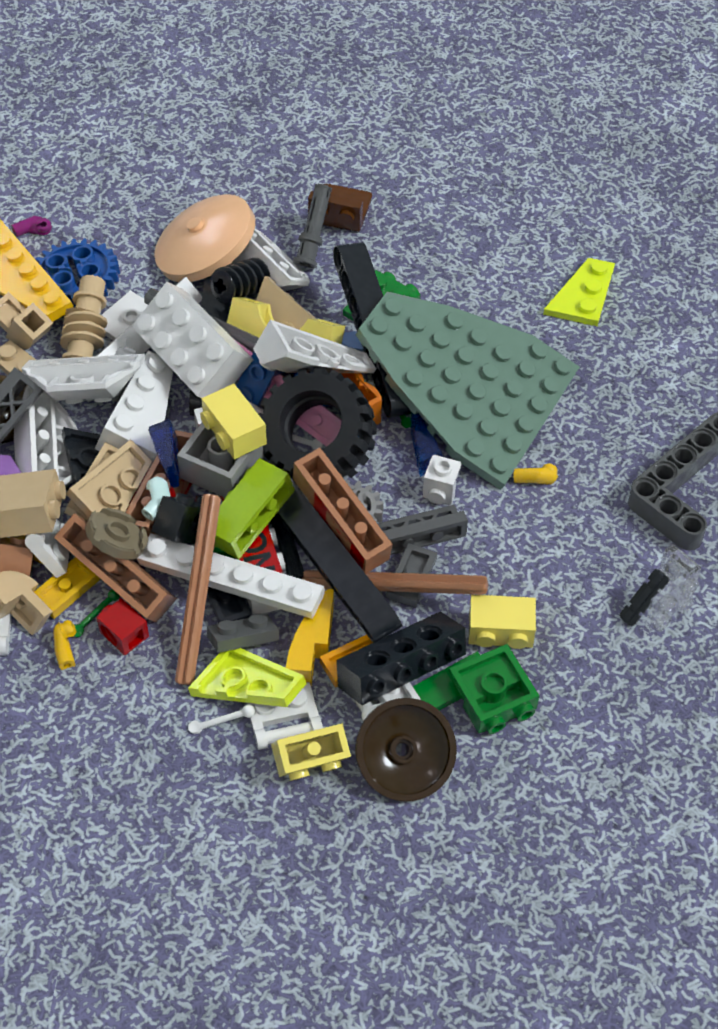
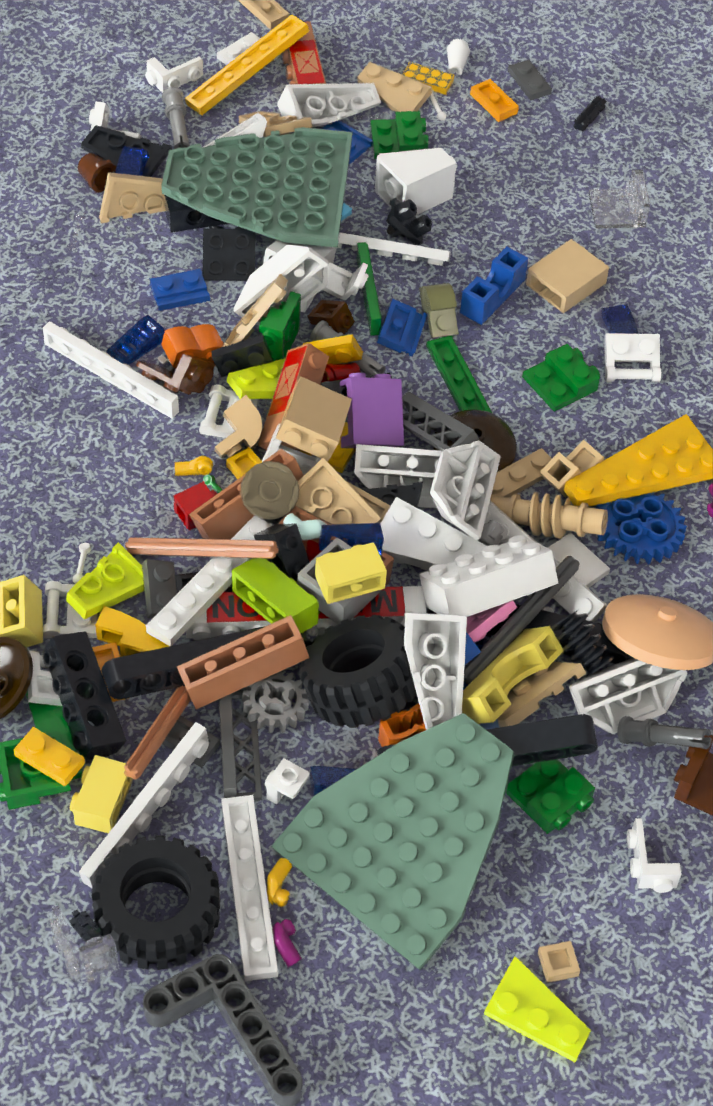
camera: 100 degrees right, 0 degrees up
(428, 240) = (659, 876): none -> white bracket
(485, 665) = (49, 756): none -> yellow plate
(503, 580) = (153, 795): none -> white plate
(538, 282) = (558, 961): none -> tan plate
(548, 494) = (249, 888): none -> white plate
(596, 457) = (283, 943): none -> magenta arm
(606, 516) = (149, 863): none -> black tyre

